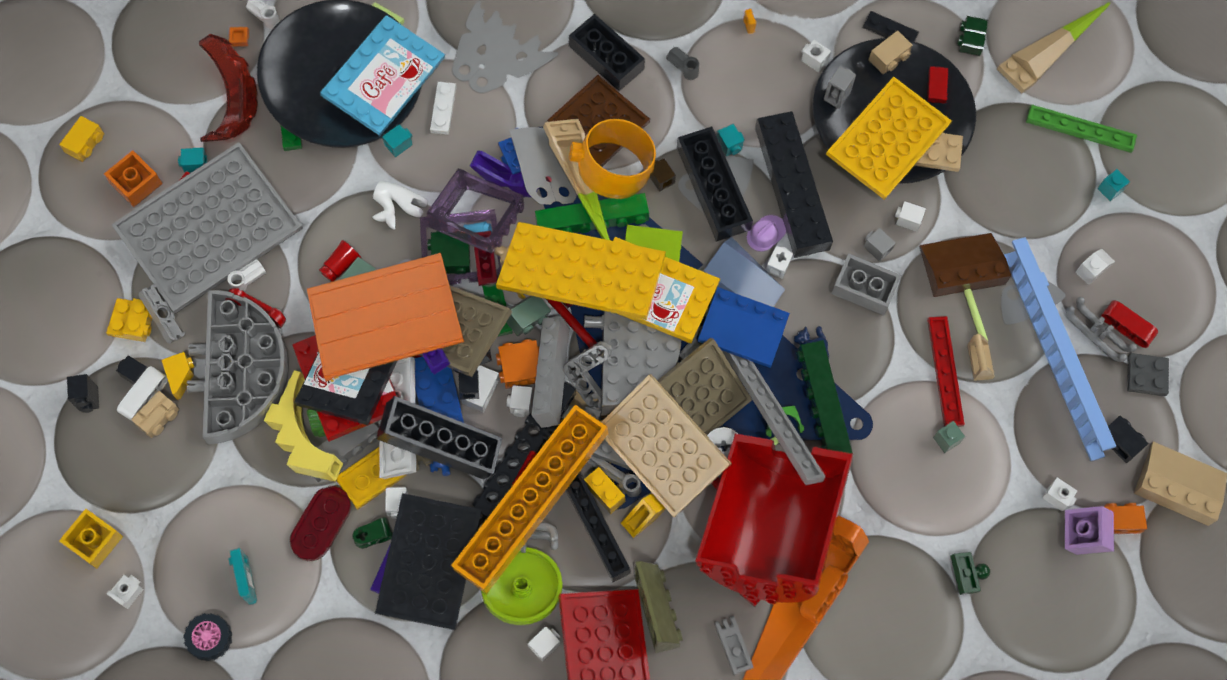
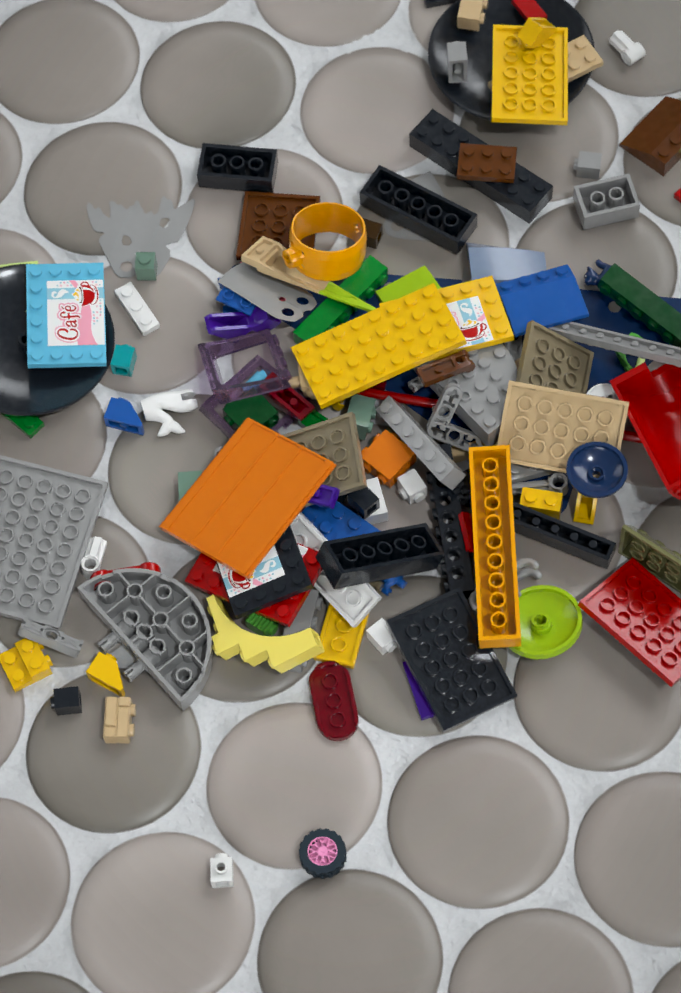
camera: 30 degrees left, 5 degrees down
(83, 393) = (42, 746): black brick -> none
(91, 538) = (156, 852): yellow brick -> none
(142, 391) = (91, 712): white beam -> none
(243, 575) = (311, 782): teal container -> none
(339, 261) = (163, 488): red plant -> none
(360, 183) = (122, 416): none -> blue slope
(374, 532) = (386, 673): dark green piece -> none
(474, 79) = (146, 266): none -> sand green brick
(544, 643) = (596, 652): white brick -> none
(616, 326) = (445, 368): none -> reddish brown plate
(666, 486) = (597, 459): none -> dark blue dish
(684, 62) = (308, 133): dark grey piece -> none
(730, 140) = (401, 165): teal brick -> none
(749, 21) = (332, 64): light orange tile -> none
(766, 233) = (491, 220): lavender piece -> none
(779, 268) = (522, 233): white brick -> none
(795, 185) = (487, 163): none -> reddish brown plate
(815, 62) = (409, 54): white brick -> none
(910, 216) = (593, 126): white brick -> none
(921, 106) = (536, 32): none -> yellow slope
(993, 175) = (630, 51): none -> white piece

